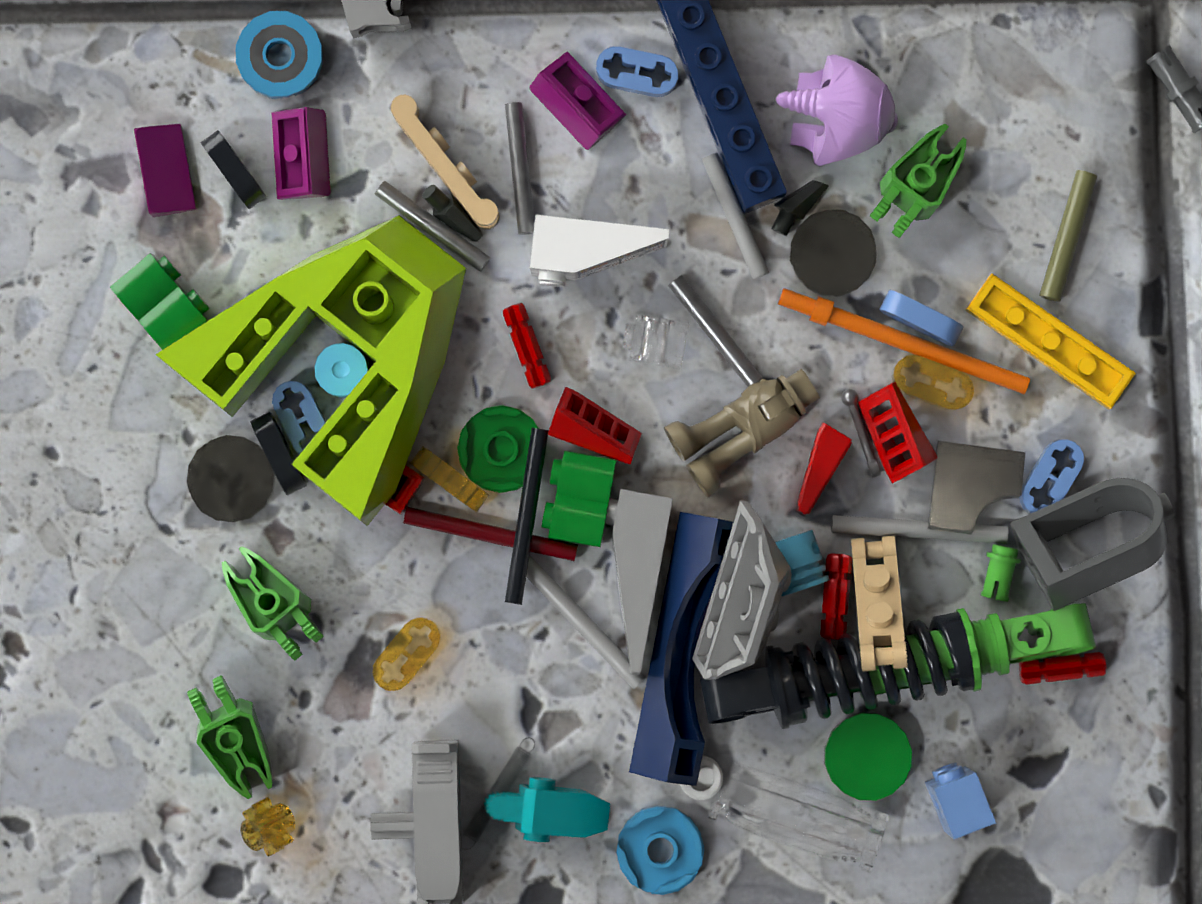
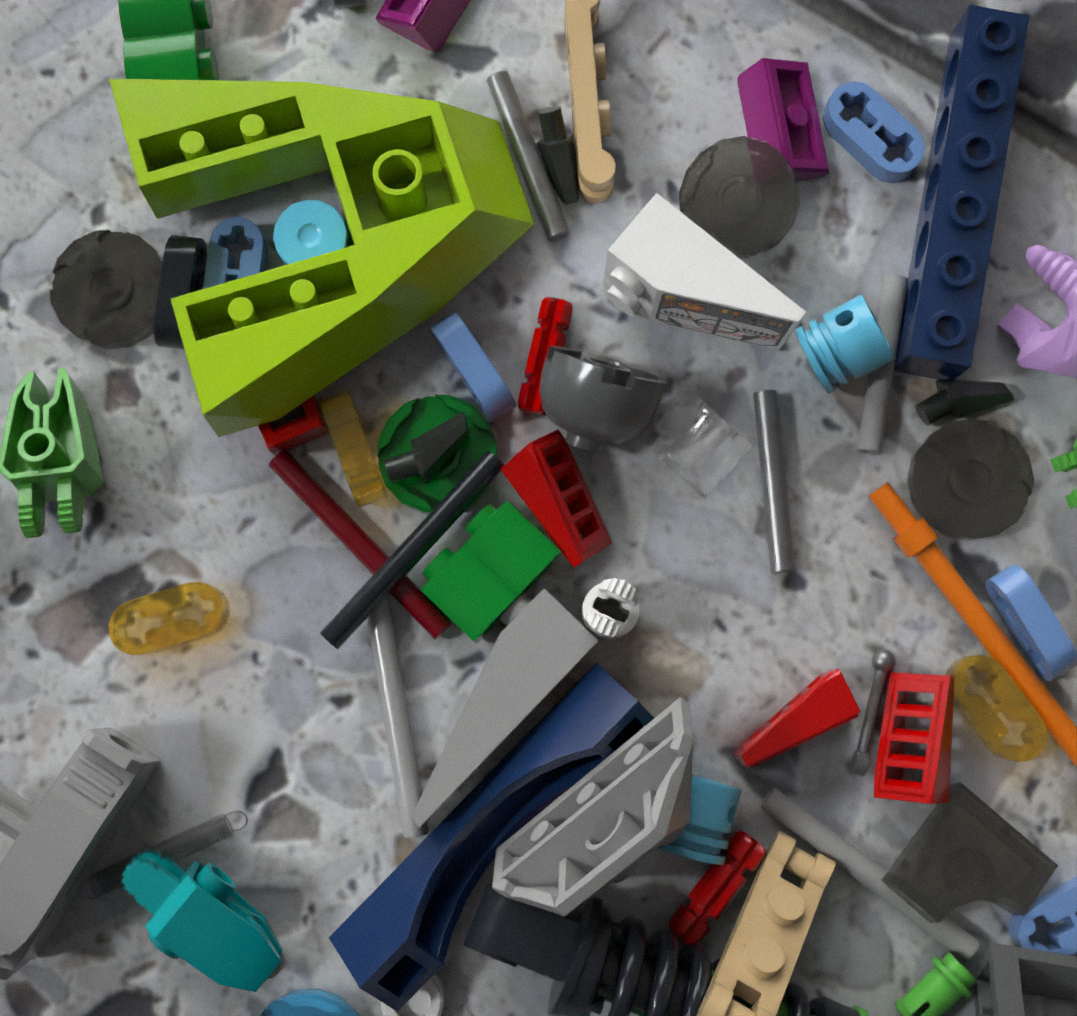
camera: 35 degrees right, 5 degrees down
(487, 382) = (472, 366): none -> medium blue beam
(497, 451) = (429, 451): none -> pearl dark grey bar
(520, 168) = (673, 145): flat silver bar -> none
(577, 352) = (597, 398): none -> dark grey cylinder
(581, 171) = (741, 195): none -> clear smoke tile
(672, 487) = (603, 625): none -> white hinge
(704, 222) = (845, 344): none -> medium azure piece
(762, 415) = (767, 611): dark tan piece -> none

